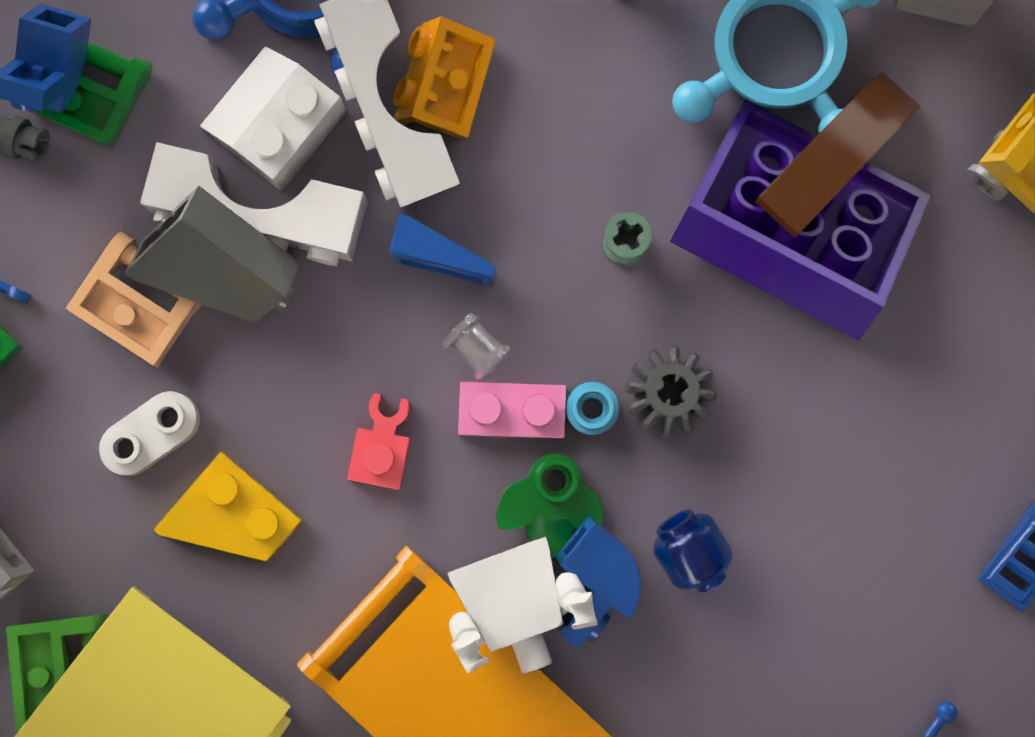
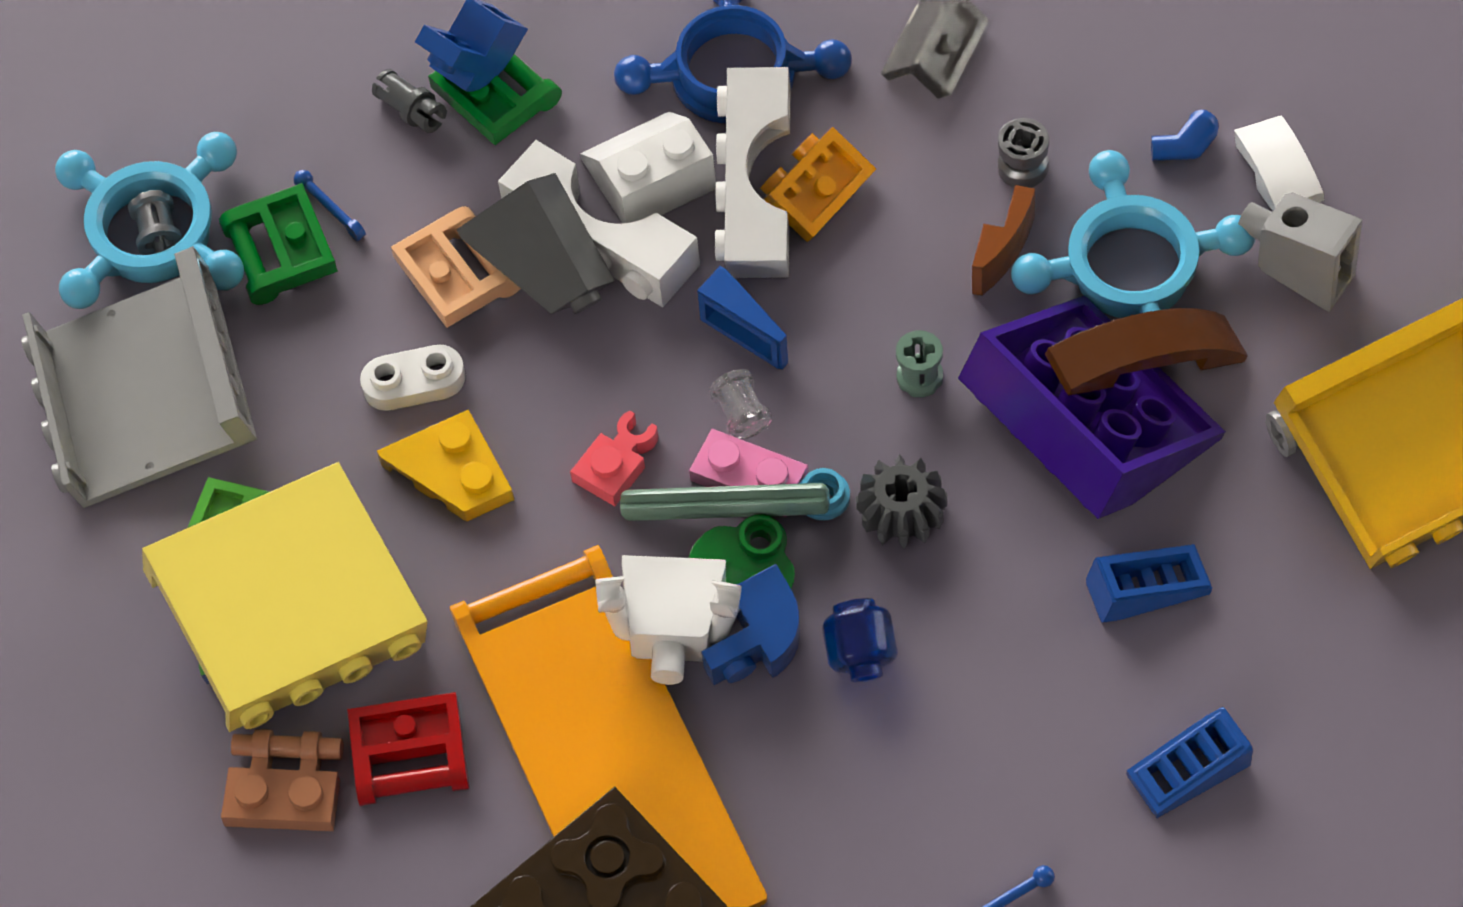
camera: 25 degrees right, 25 degrees down
(509, 459) = (725, 501): none -> sand green axle
(647, 84) = (999, 245): none -> dark orange slope
(896, 401) = (1114, 590): none -> blue slope

